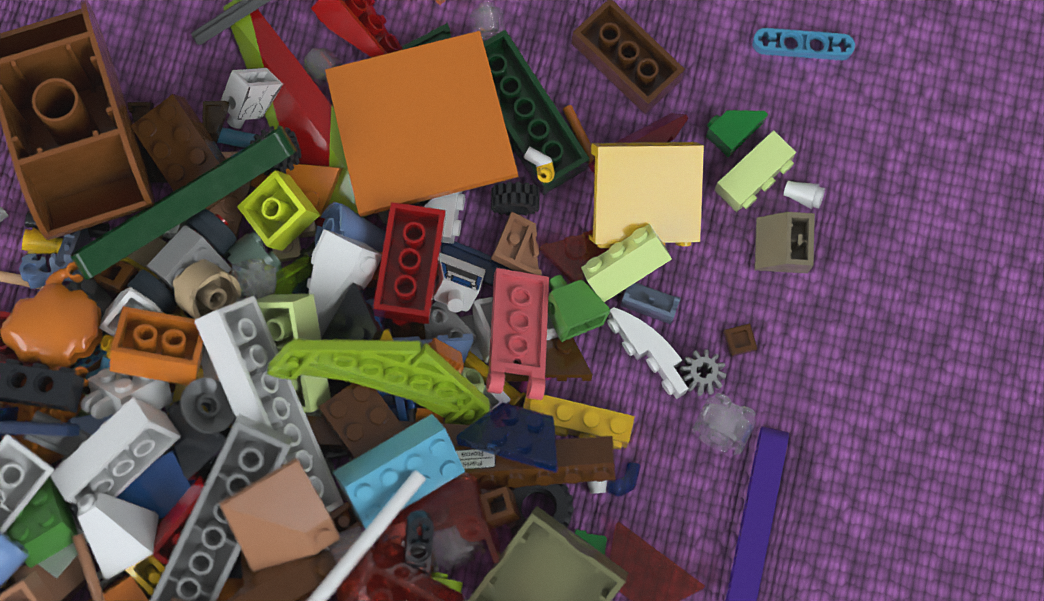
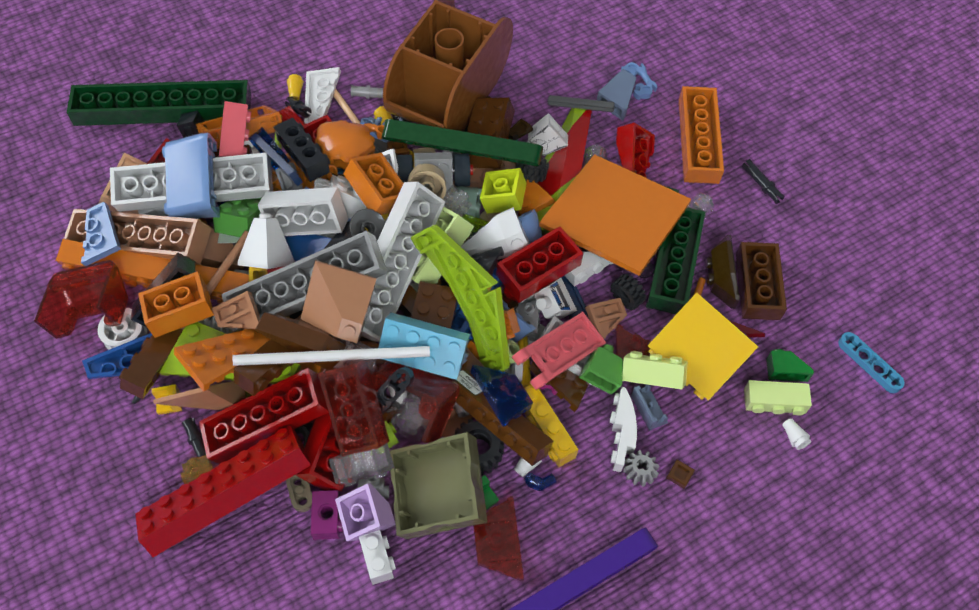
camera: 50 degrees right, 15 degrees down
(500, 507) = (456, 417): reddish brown brick -> none
(543, 164) = (660, 283): arm -> none
(580, 80) = (722, 272): none -> dark brown wedge
(724, 424) = (625, 503): clear brick -> none
(785, 242) = (758, 446): dark tan slope -> none

